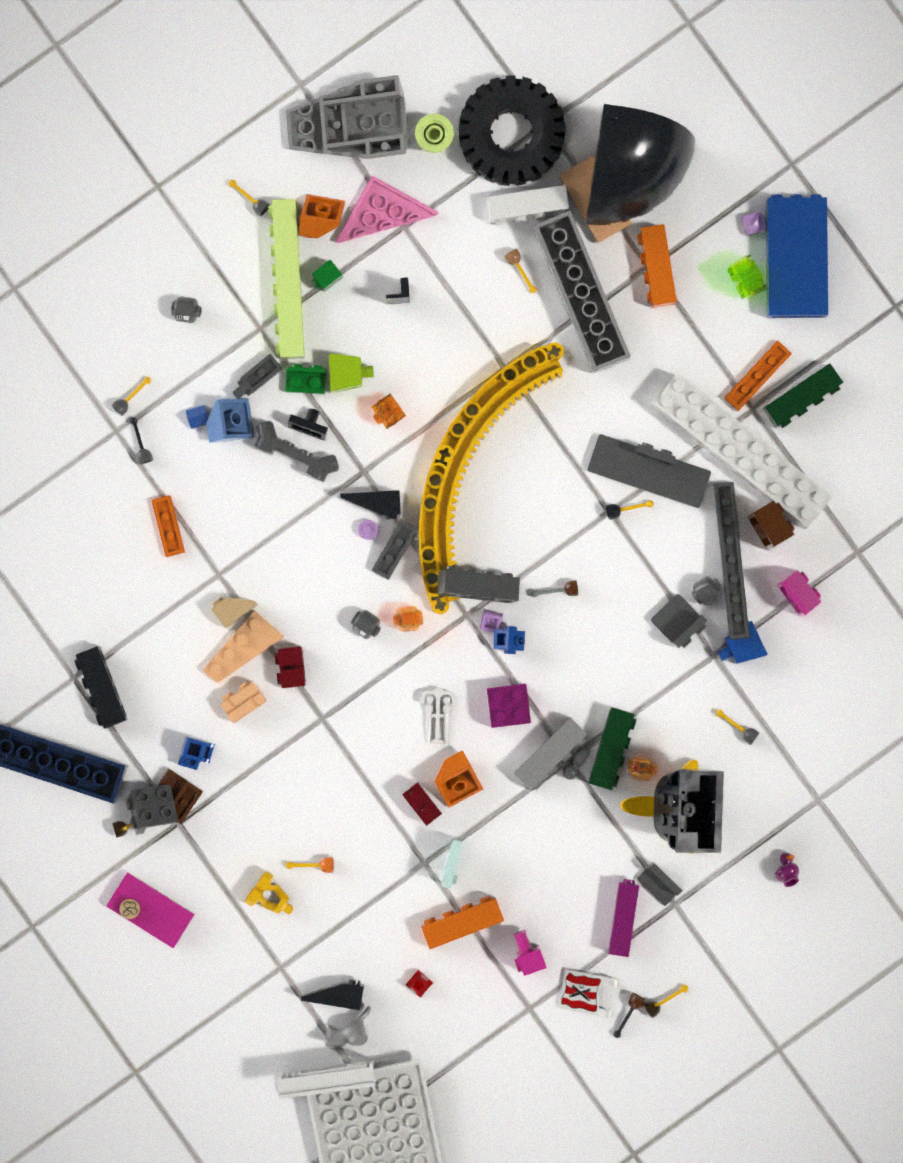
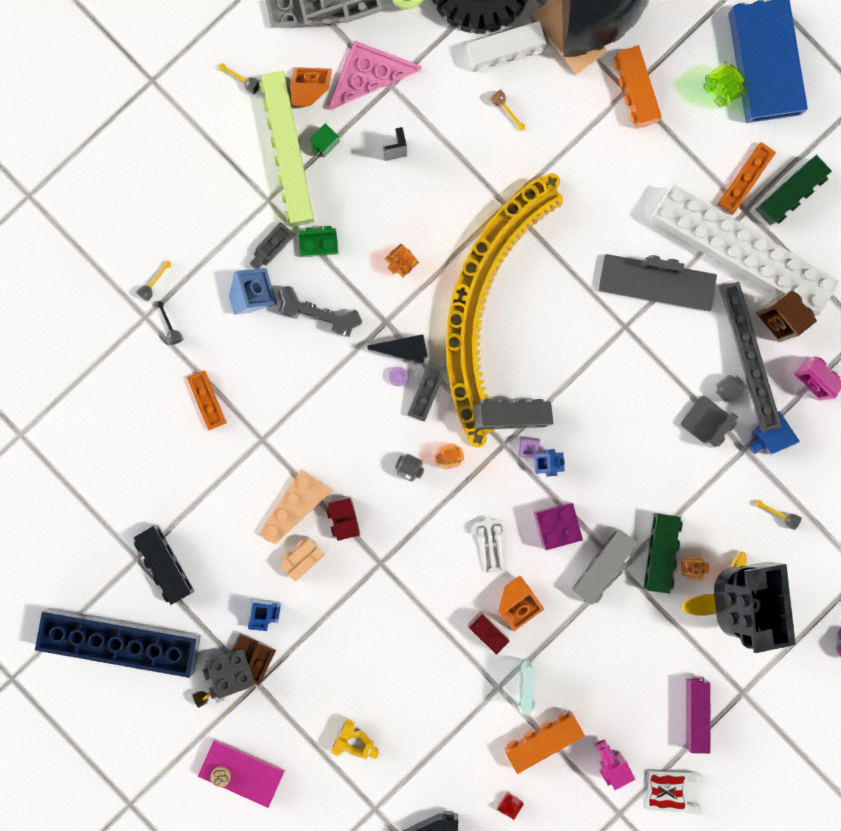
camera: 15 degrees left, 0 degrees up
(186, 309) = (194, 191): dark grey head -> none
(197, 416) = (219, 292): blue slope -> none
(232, 609) = (278, 472): tan slope -> none
(308, 425) = (327, 284): black tile -> none
(326, 865) = (404, 705): hinge -> none
(347, 372) = (357, 229): lime torso -> none
(570, 589) = (599, 405): hinge -> none
(571, 770) = (626, 579): dark grey plate -> none
(581, 292) = (569, 121): light grey brick -> none
(614, 510) = (629, 325): hinge -> none
(635, 1002) = (721, 794): hinge -> none
(653, 1008) = (739, 796): hinge -> none
(659, 884) = (726, 675): dark grey panel -> none
(753, 223) = (721, 35): lavender tile -> none

